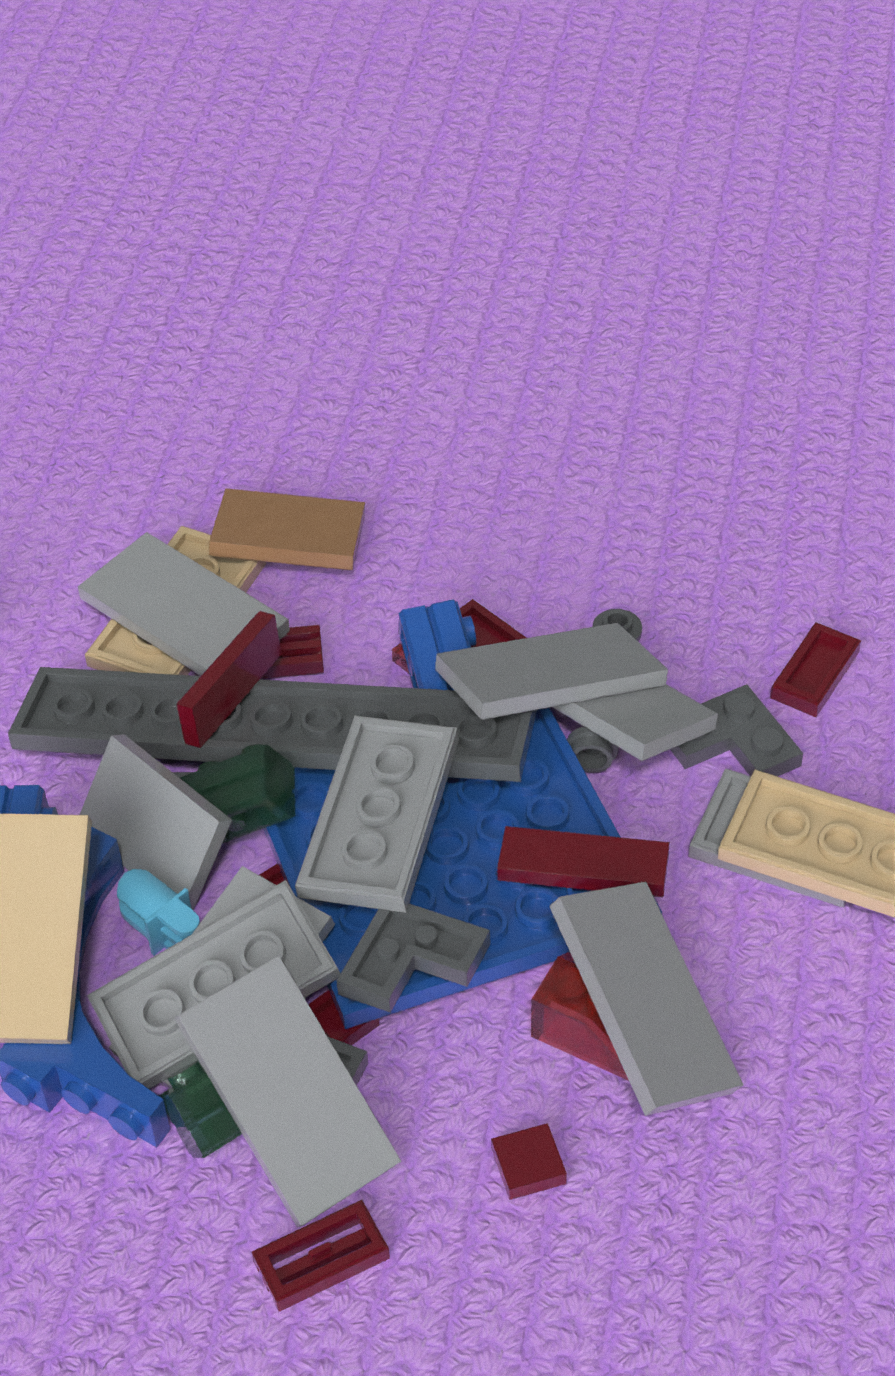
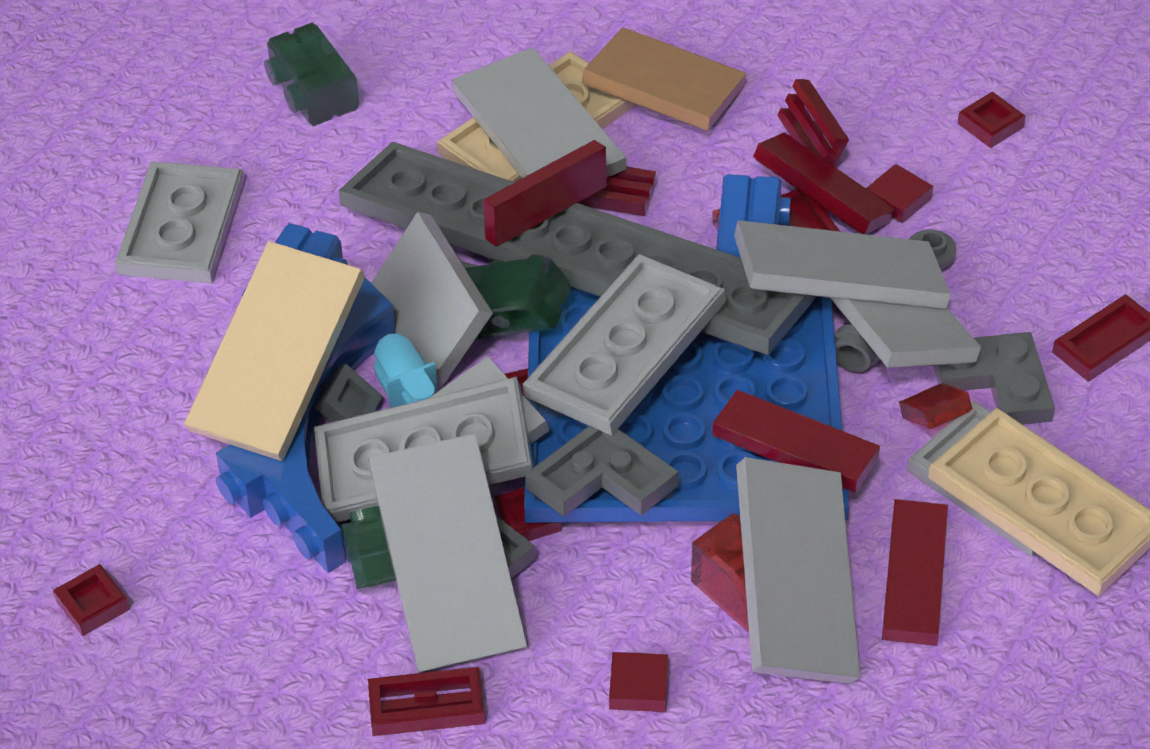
camera: 20 degrees right, 0 degrees up
(106, 952) = (346, 396): none -> dark grey plate
(453, 546) = (811, 132): none -> dark red tile
(488, 592) = (824, 183): none -> dark red tile
(560, 582) = (902, 191): none -> dark red tile
(614, 486) = (991, 119): none -> dark red tile
(692, 784) = (936, 405): none -> clear red tile
(746, 959) = (915, 572): none -> dark red tile

